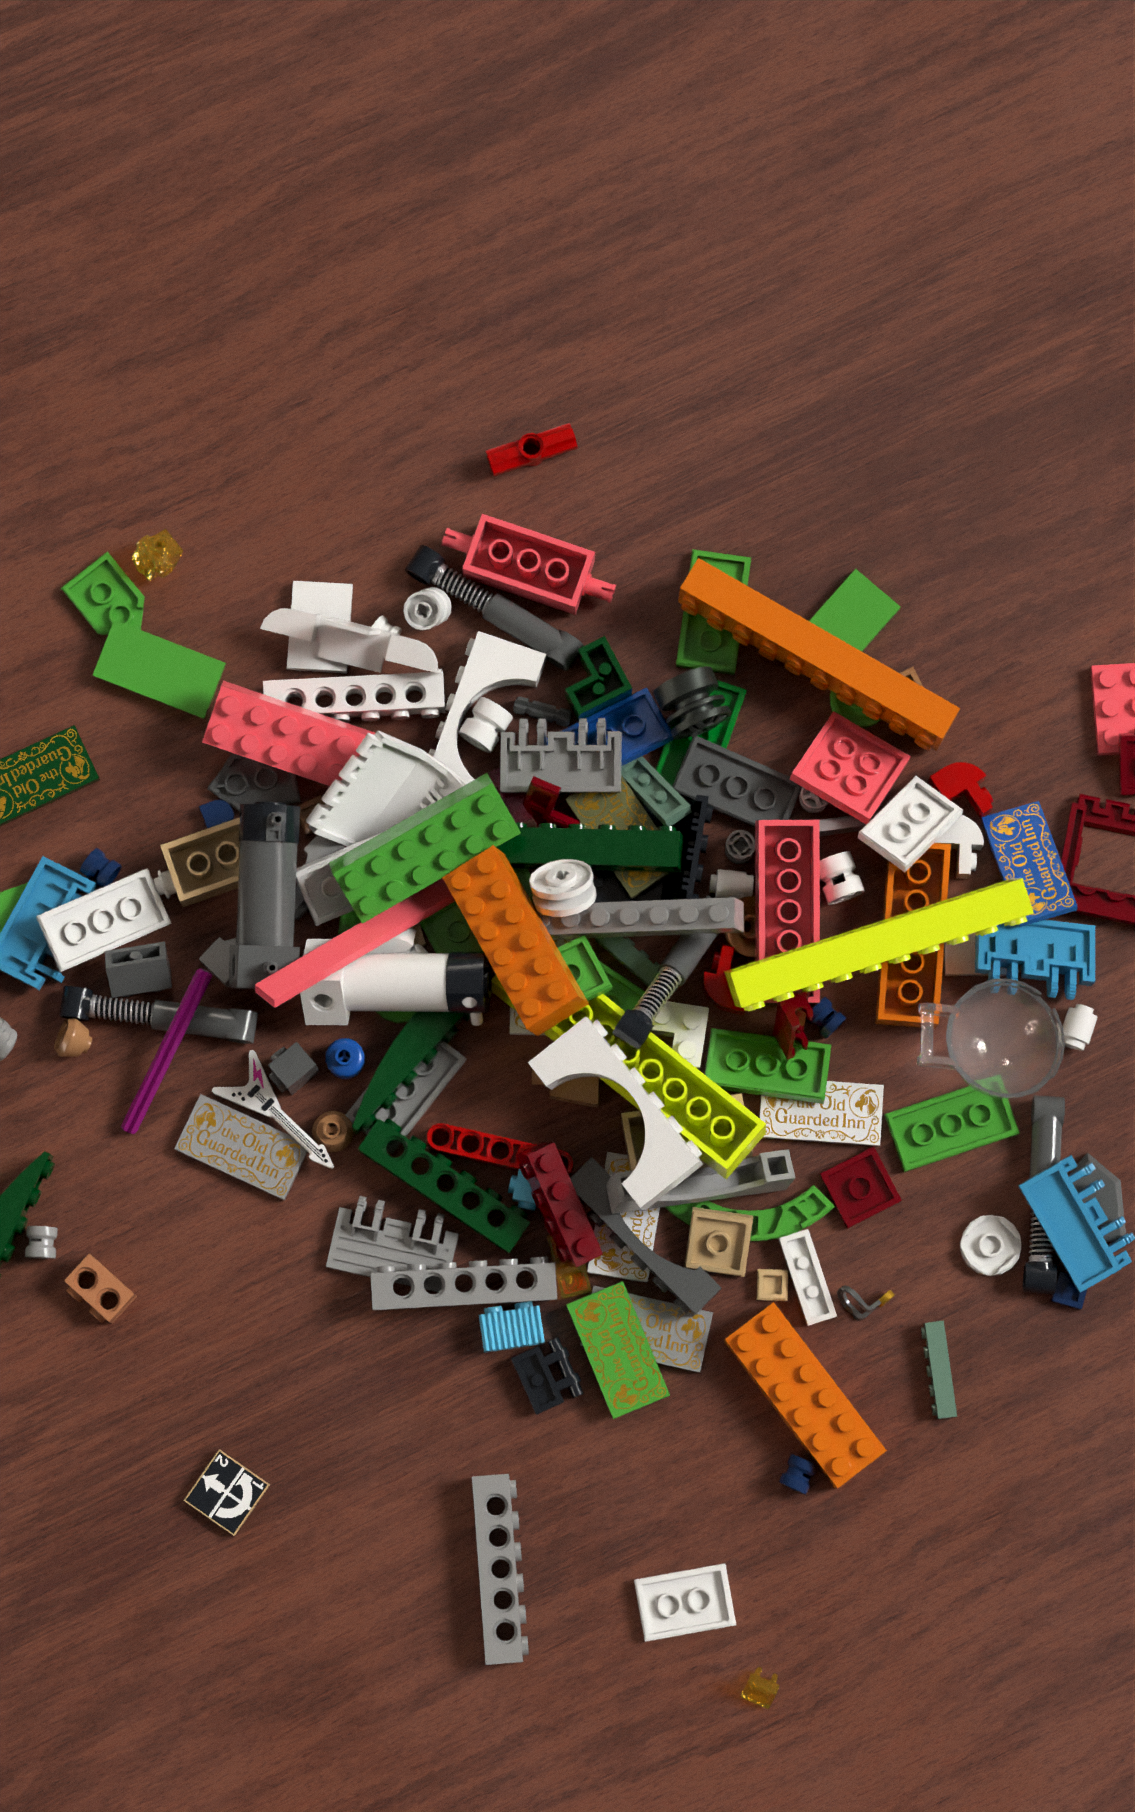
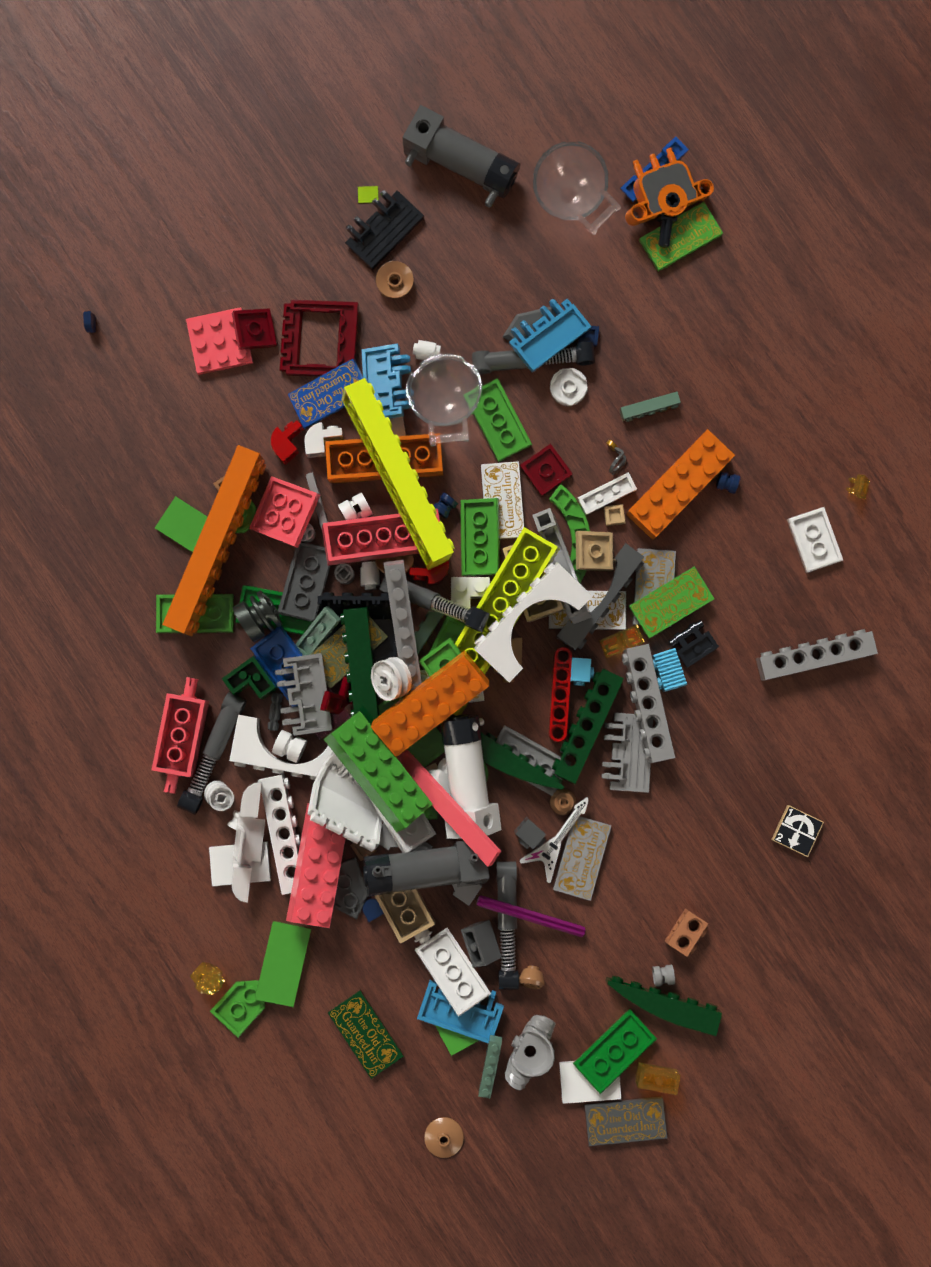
camera: 100 degrees left, 5 degrees up
(100, 868) = (418, 979): dark blue wheel -> none
(354, 1064) = (510, 803): blue head -> none
(550, 442) = (97, 734): red piece -> none
(559, 1204) = (590, 651): dark red brick -> none
(790, 1023) = (455, 525): dark red hinge -> none
(910, 824) = (315, 468): white tile -> none

